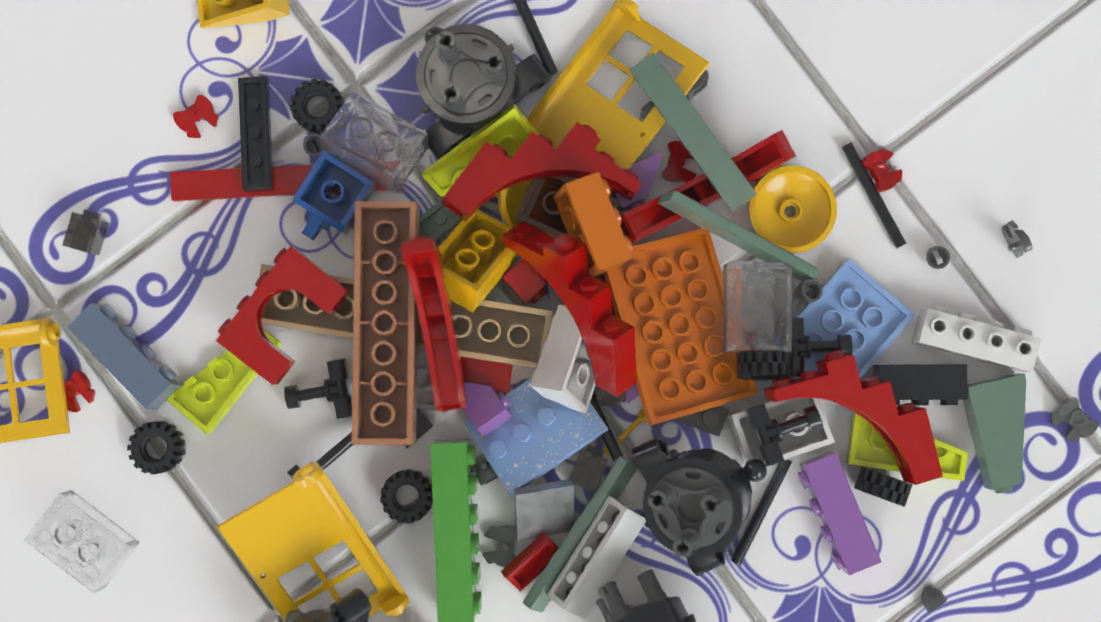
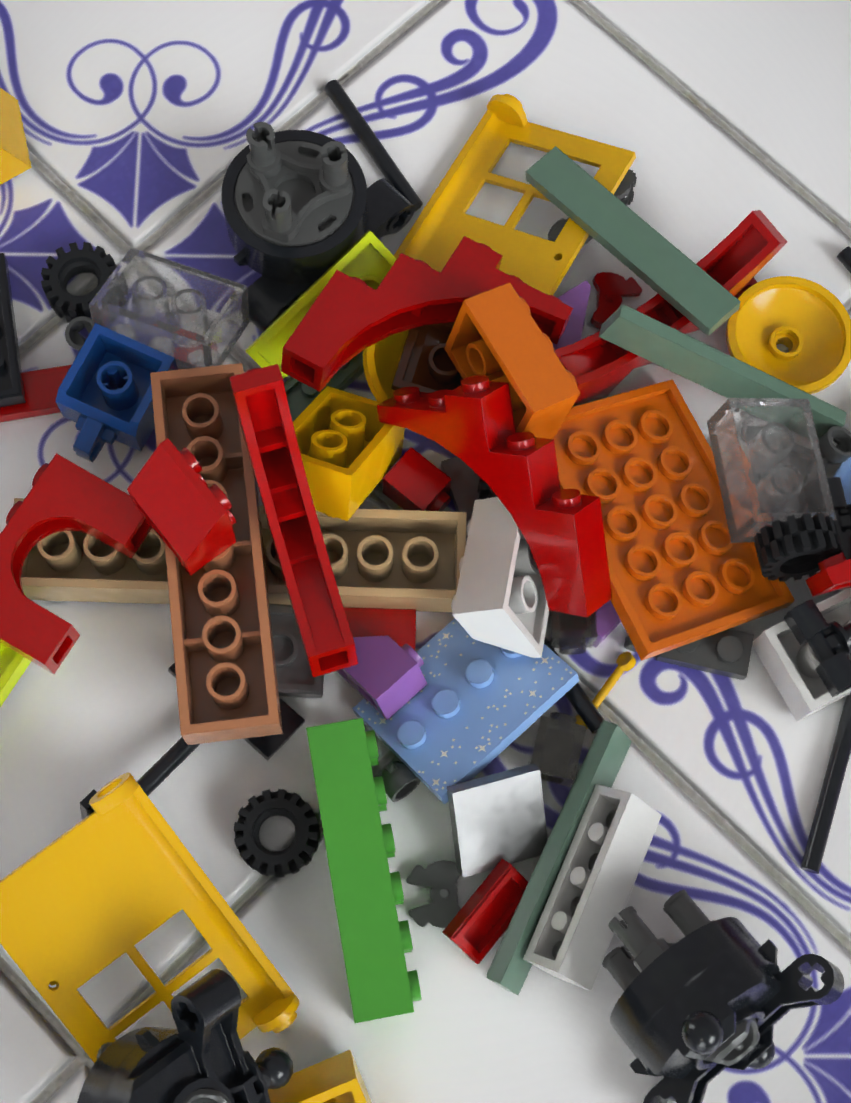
camera: 15 degrees left, 15 degrees down
(334, 389) = (144, 682): black bar -> none
(365, 305) = (182, 508): none -> red slope
(695, 500) = (736, 767): piece -> none

